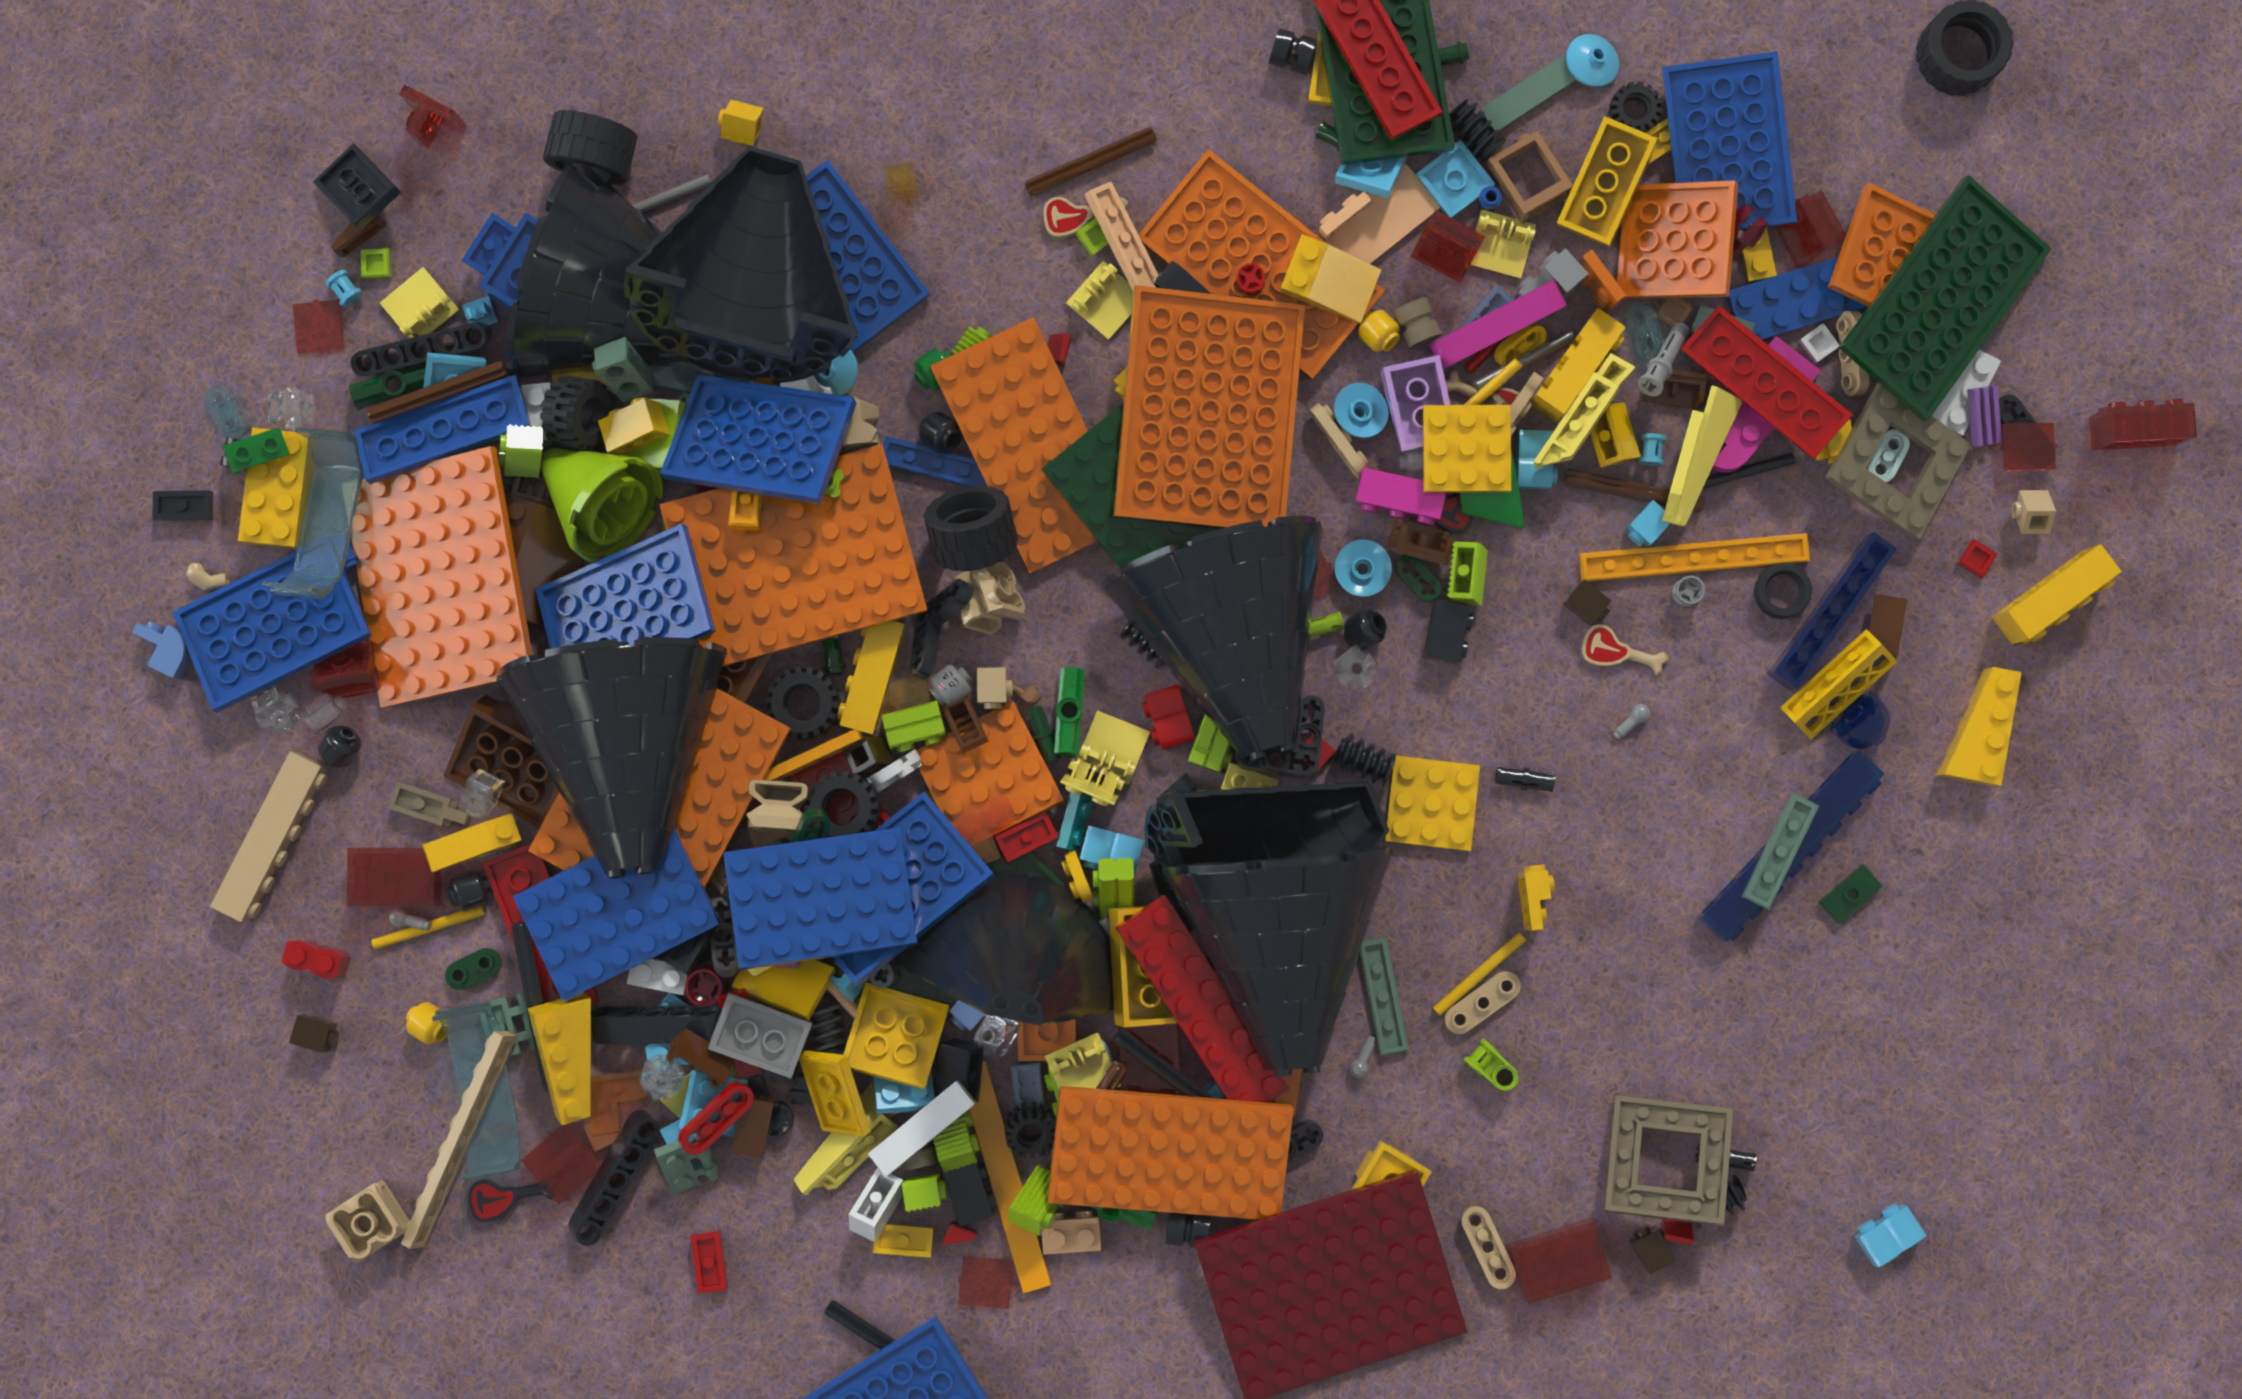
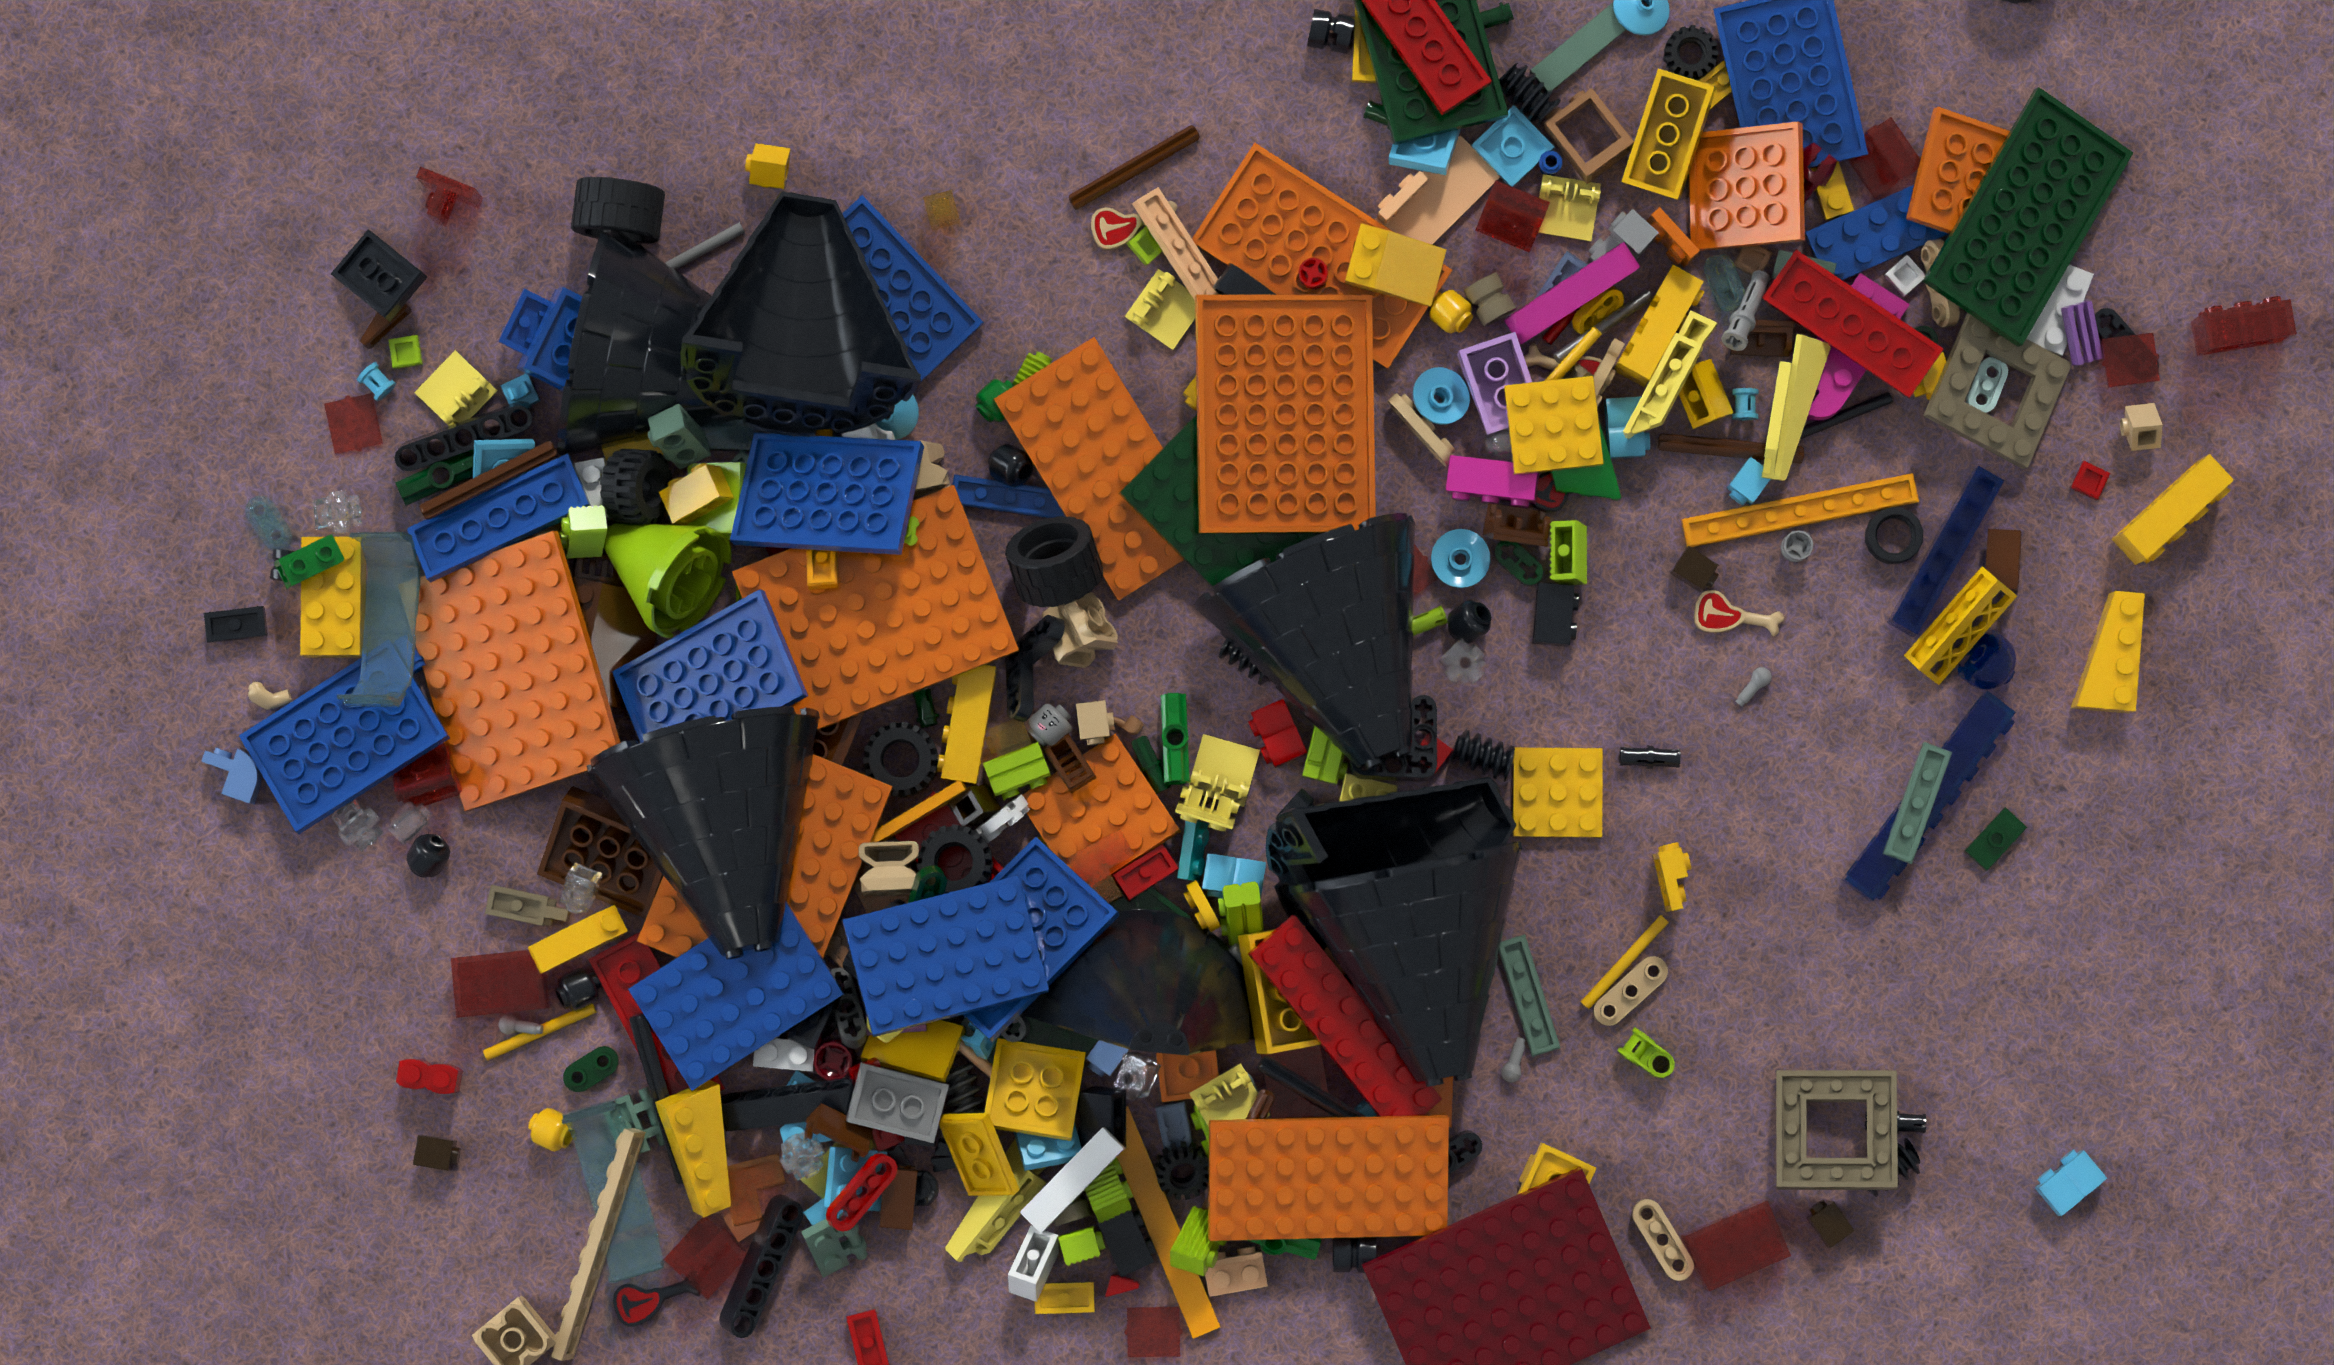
camera: 10 degrees left, 0 degrees up
(269, 837) = (366, 956): tan brick -> none
(1059, 347) = (1122, 363): red slope -> none
(1677, 1231) = (1853, 1201): red slope -> none

